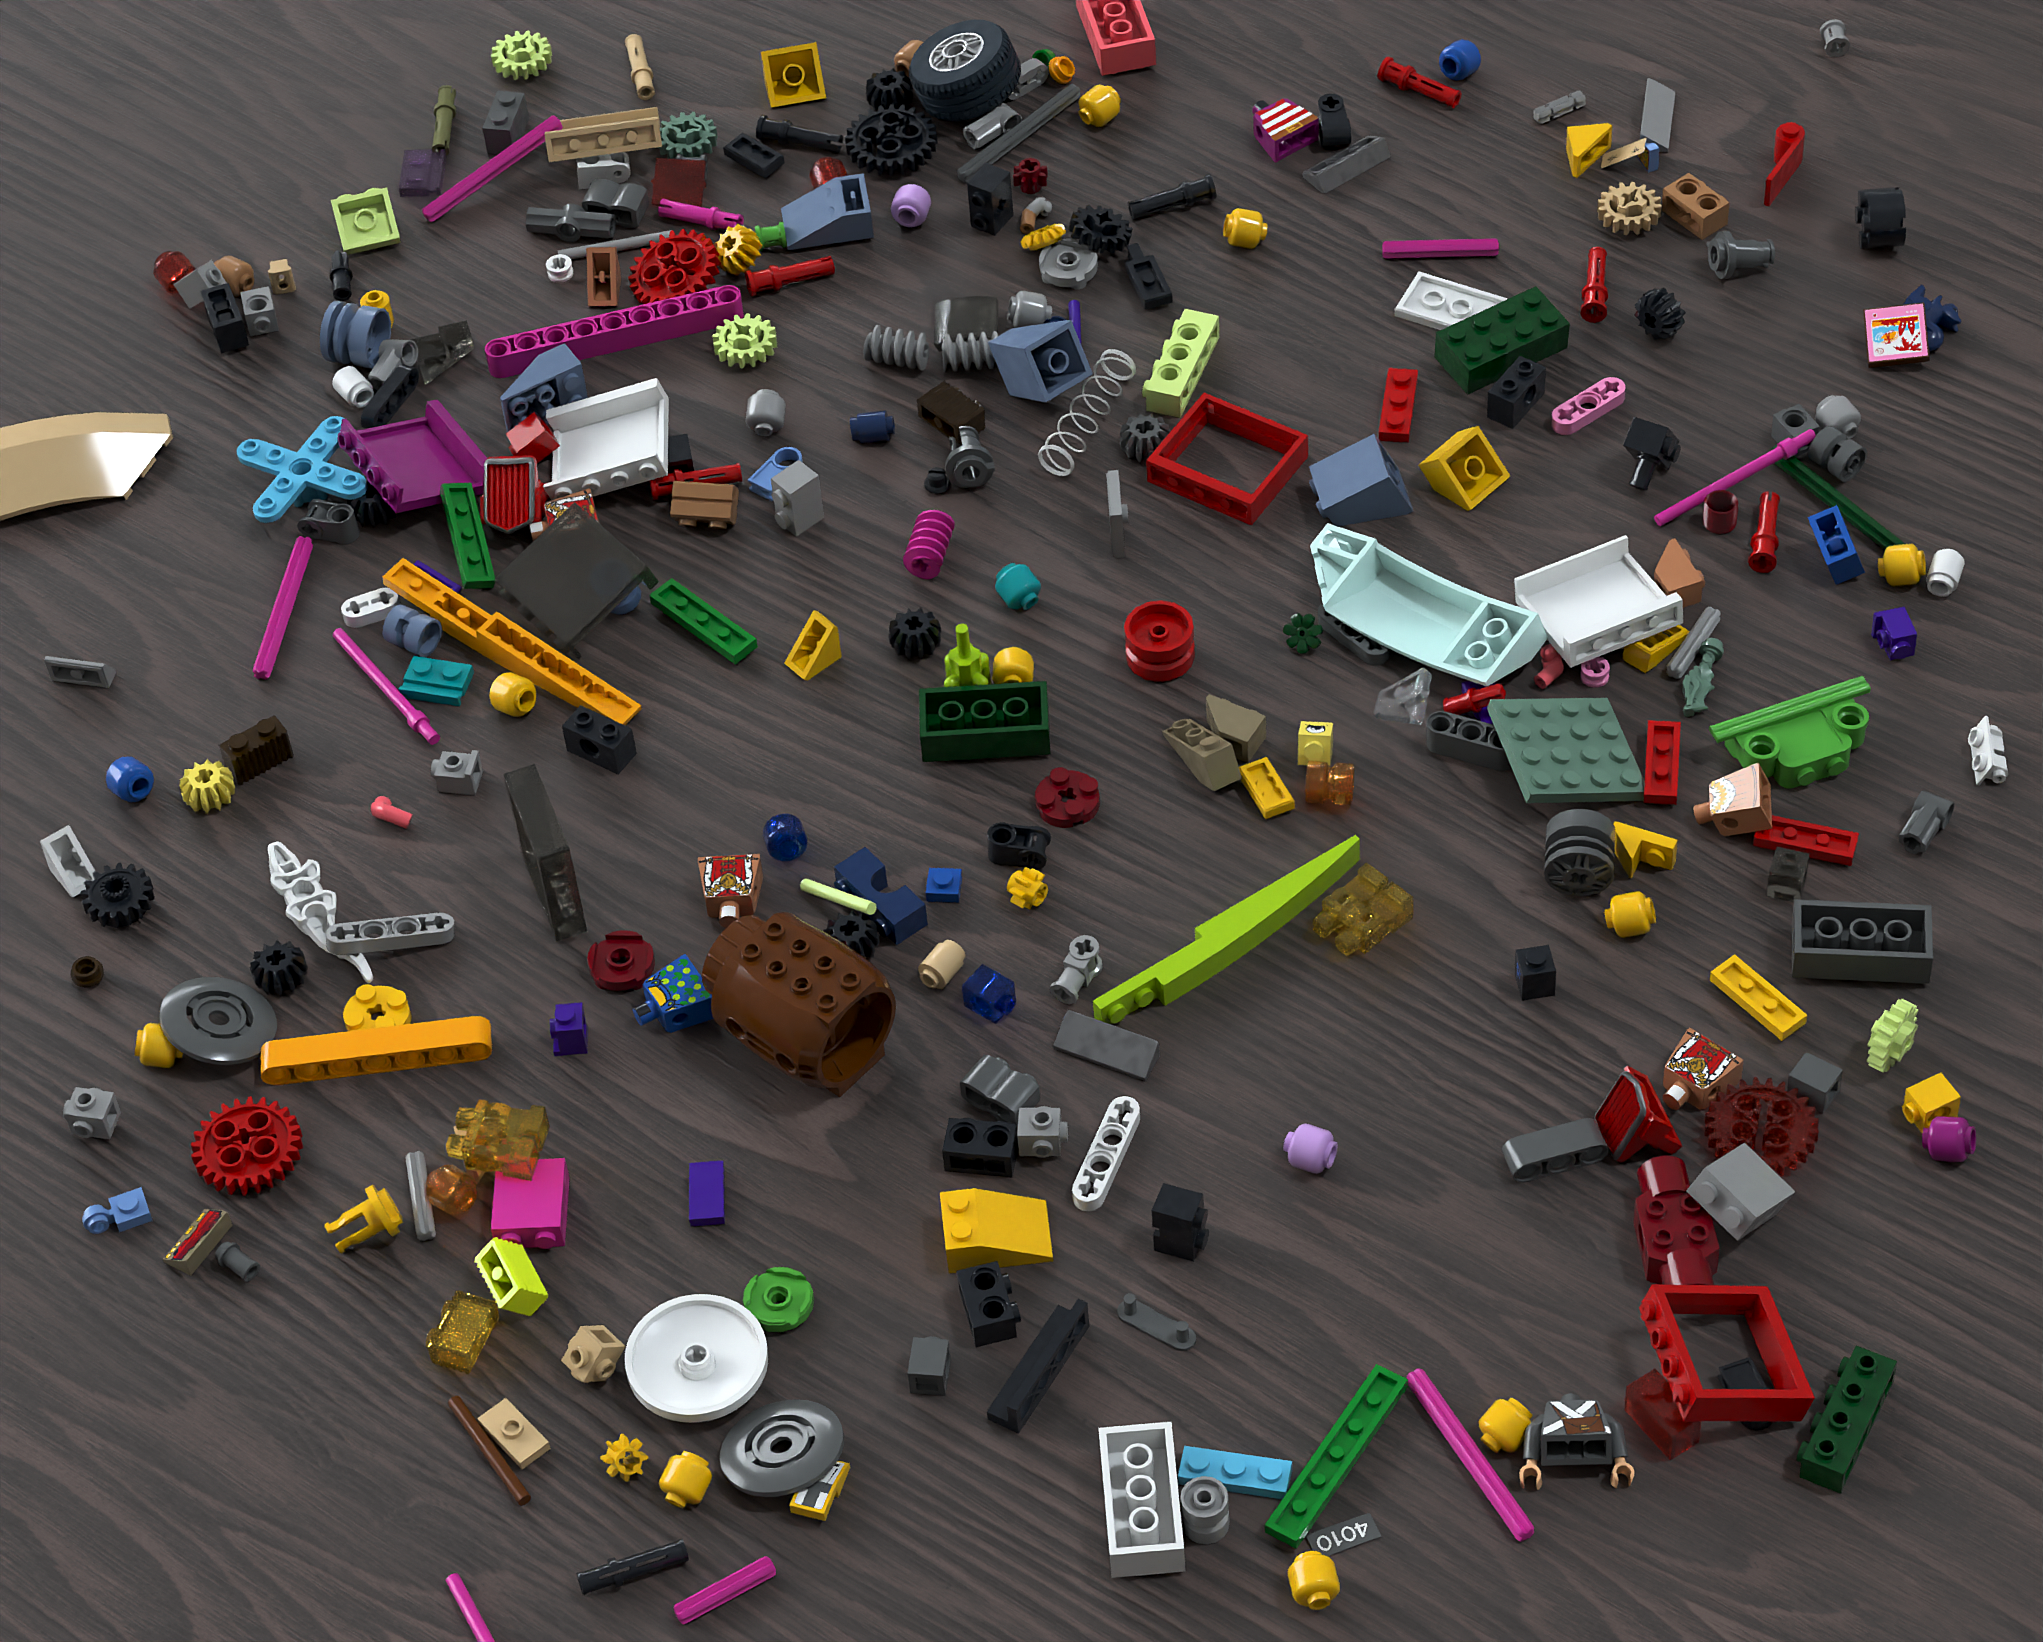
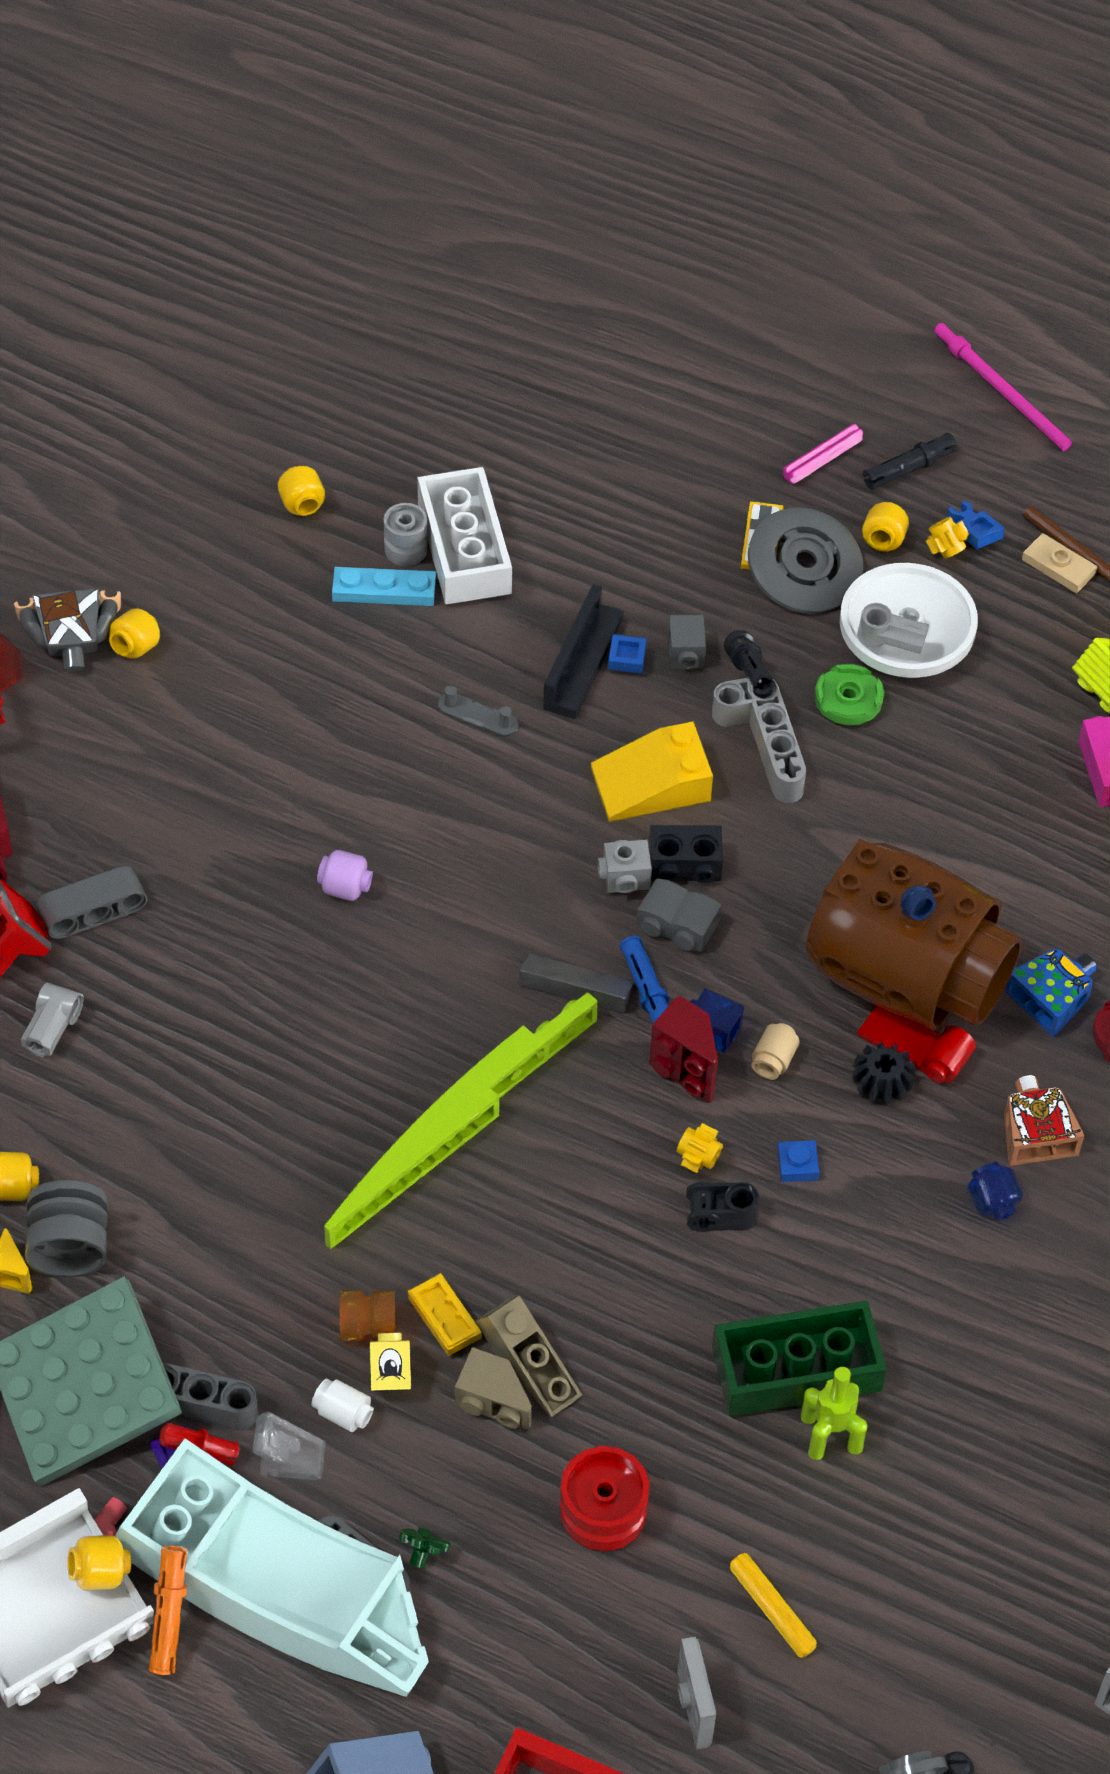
camera: 165 degrees right, 5 degrees up
(586, 1475) = (980, 526): none -> blue plate
(593, 1354) = (998, 612): tan brick -> none
(706, 1193) = (953, 795): dark purple tile -> none
(728, 1319) = (890, 629): none -> light grey piece
(796, 939) = (918, 902): none -> dark blue plate
(815, 647) = (1038, 1464): yellow slope -> none
(838, 896) = (911, 1114): yellowish green bar -> none
(873, 1282) = (738, 704): none -> light grey beam
(873, 1327) = (749, 660): none -> black pin
(896, 913) = (845, 1106): dark blue arch -> none
(914, 633) = (904, 1502): black gear -> none
(928, 543) = (936, 1640): dark pink piece -> none
(984, 1304) = (642, 699): black brick -> none
(992, 1362) = (627, 653): none -> blue plate
(1012, 666) = (781, 1445): yellow head -> none
(1017, 586) = (804, 1582): teal head -> none
(1024, 954) = (685, 1048): none -> dark red slope
(1040, 1023) = (653, 997): none -> blue pin
(1049, 589) = (773, 1605): none -> yellow axle
(1067, 783) = (685, 1266): dark red plate -> none
(1080, 968) = (622, 1058): light grey connector -> none
(1106, 1153) = (556, 868): white beam -> none
(1180, 1222) = (465, 774): black brick -> none
(1336, 1456) = (289, 602): green plate -> none
(1344, 1535) = (278, 549): dark grey sticker -> none
(1357, 727) = (342, 1405): none -> white brick
(1364, 911) = (313, 1156): clear yellow hips -> none
(1470, 1455) = (168, 618): dark pink axle -> none
(1500, 581) = (170, 1593): none -> orange pin
(1535, 972) = (116, 1092): black brick -> none
(1555, 605) = (98, 1562): none -> yellow head
(1591, 1052) = (54, 1011): none -> light grey piece

